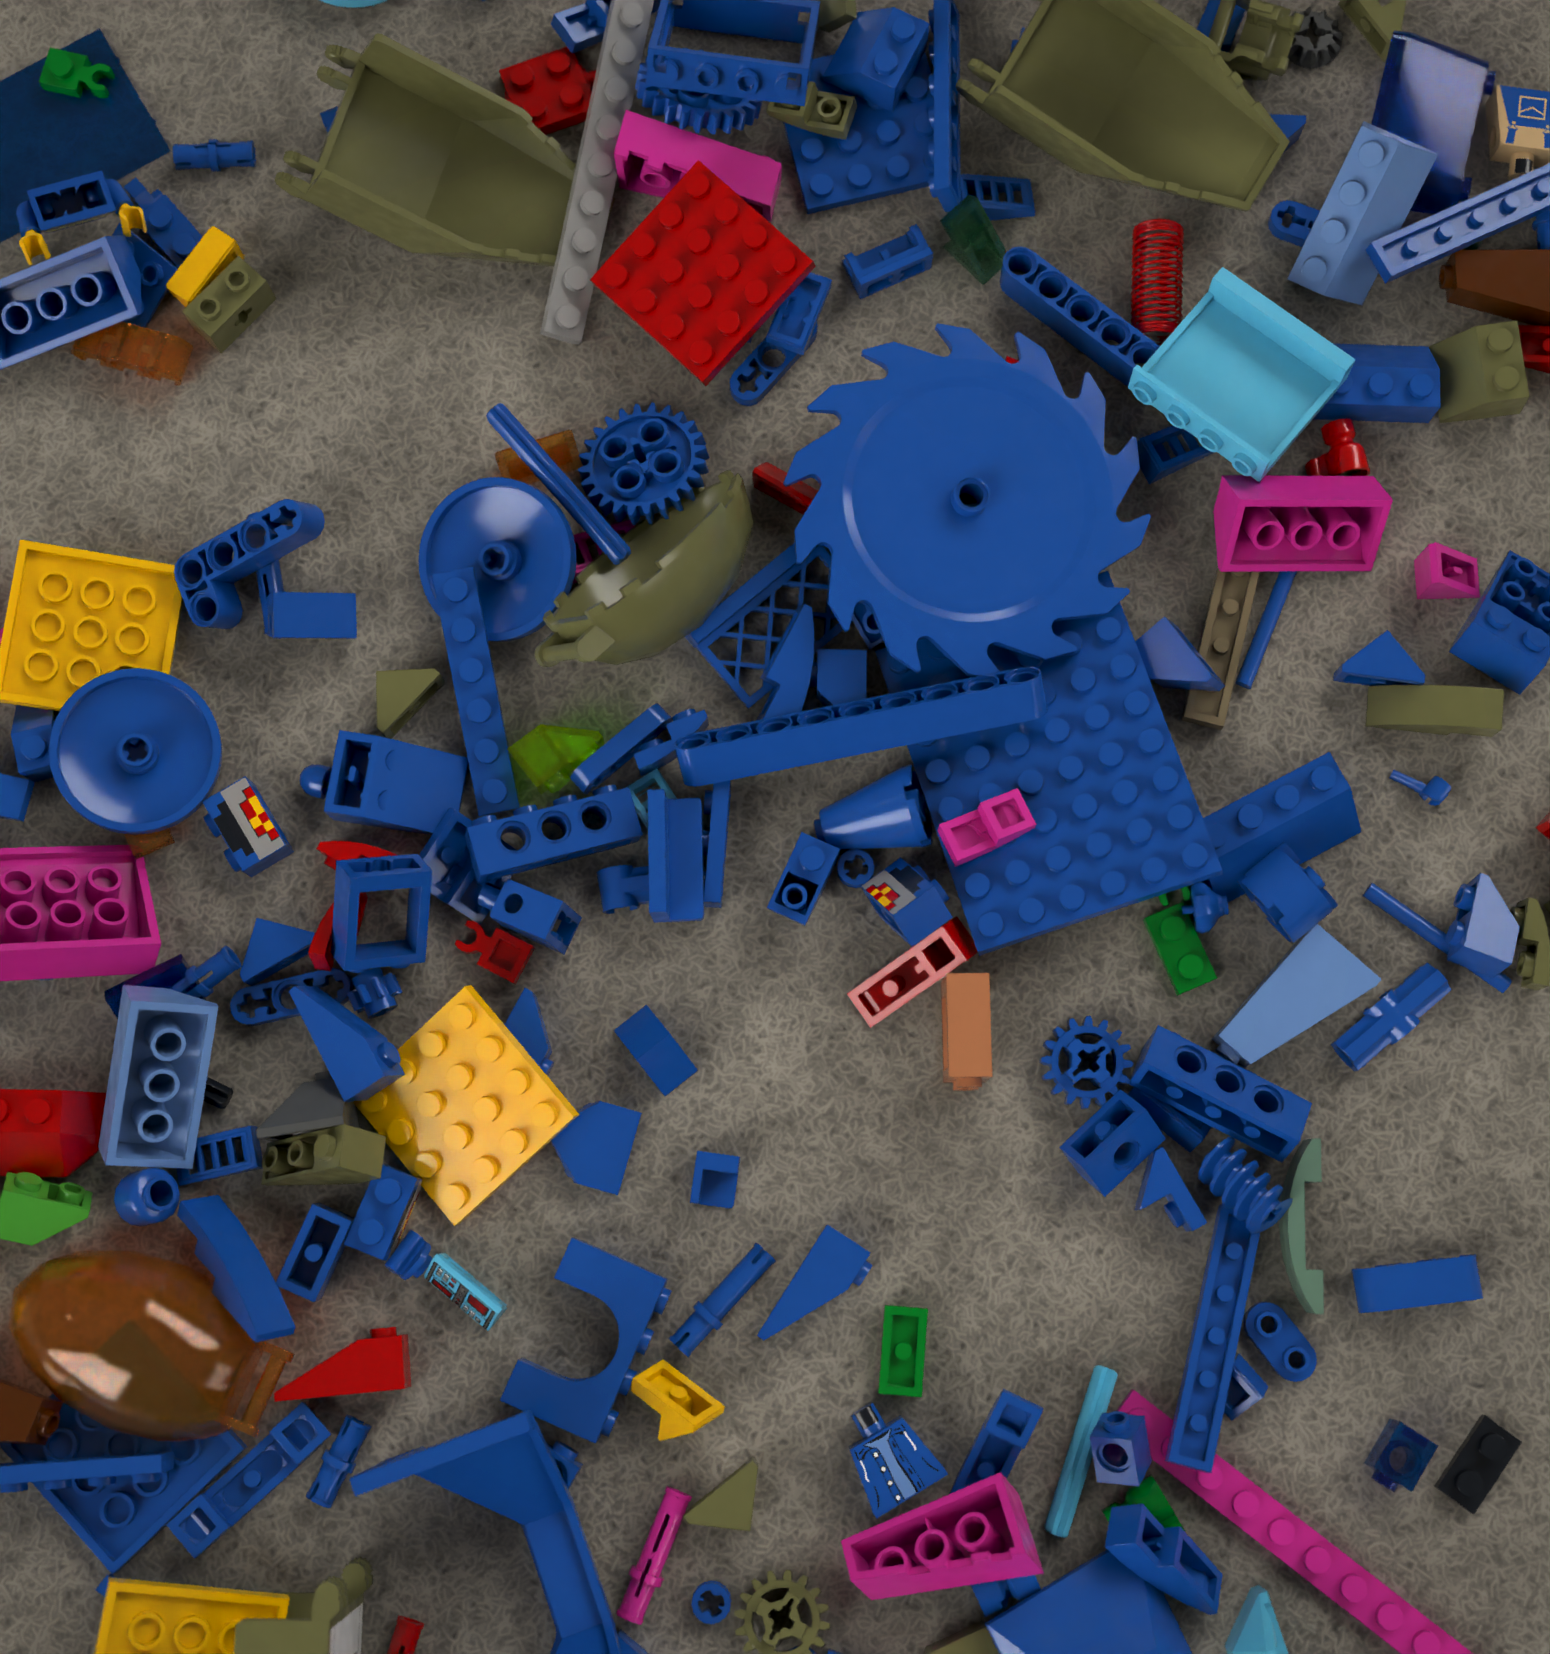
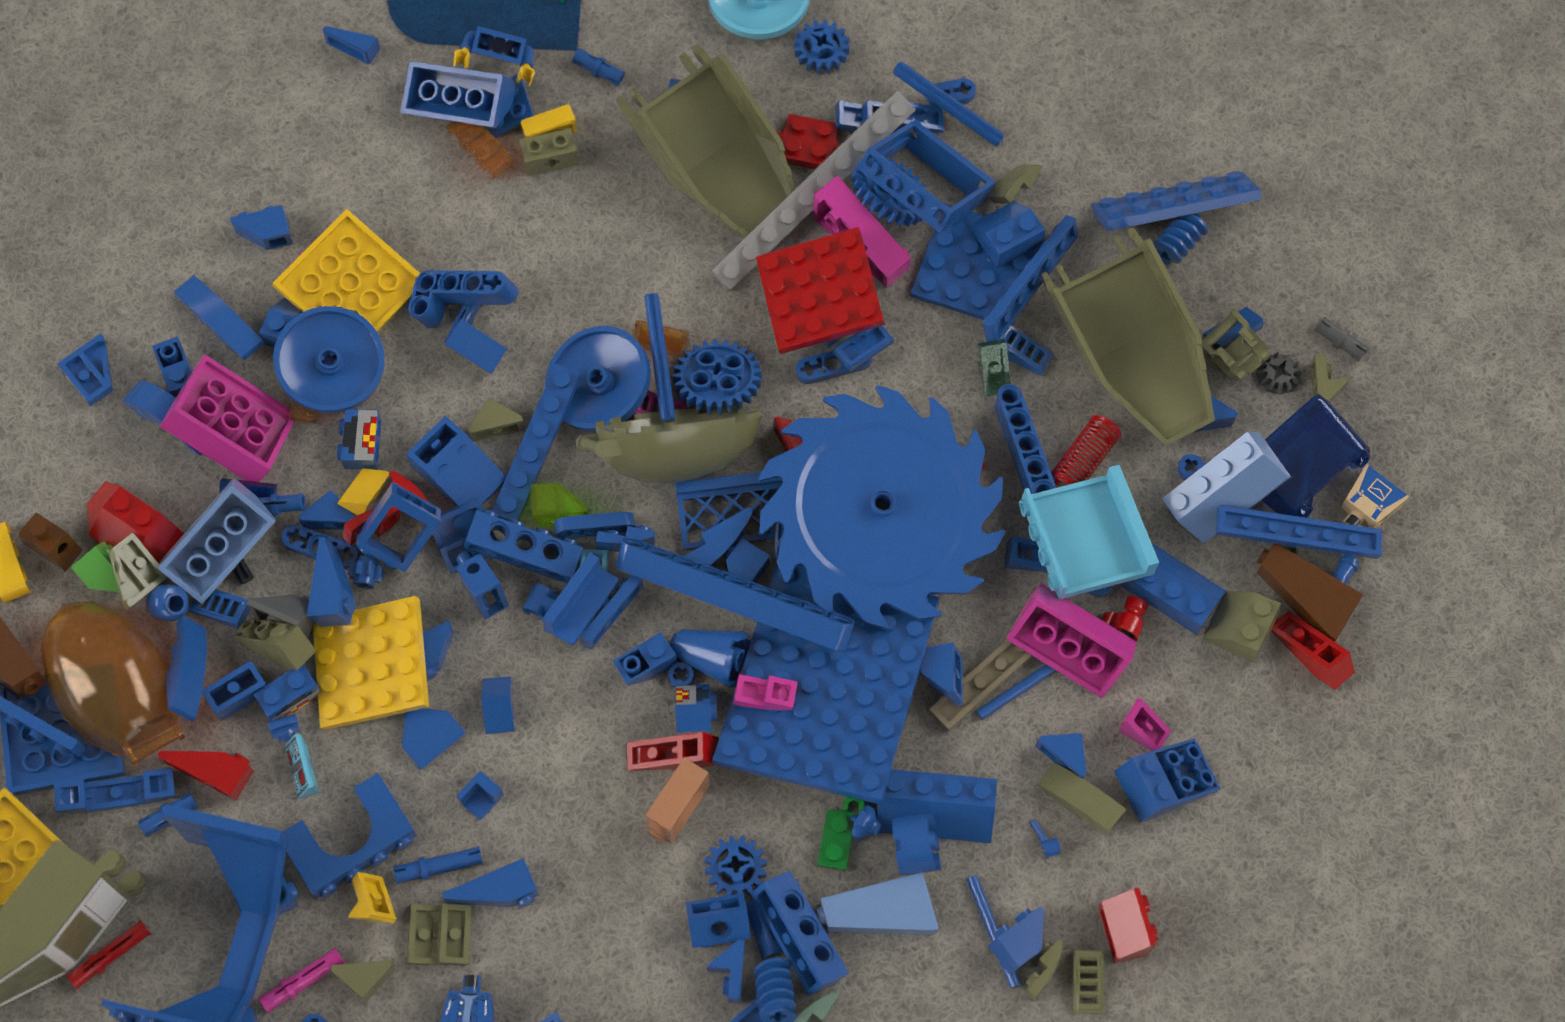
camera: 30 degrees right, 10 degrees down
(75, 1186) = (134, 570): none -> olive wing
(165, 222) = (545, 86): blue hinge -> none
(299, 890) = (364, 490): none -> yellow slope
(312, 780) = (413, 435): blue hinge -> none
(501, 953) = (449, 595): red plate -> none
(799, 1374) = (452, 934): none -> olive slope
(822, 114) = (953, 242): olive slope -> none
(889, 263) = (936, 351): blue hinge -> none
(903, 1351) = (518, 960): green plate -> none
(1391, 1016) = (932, 956): blue piece -> none

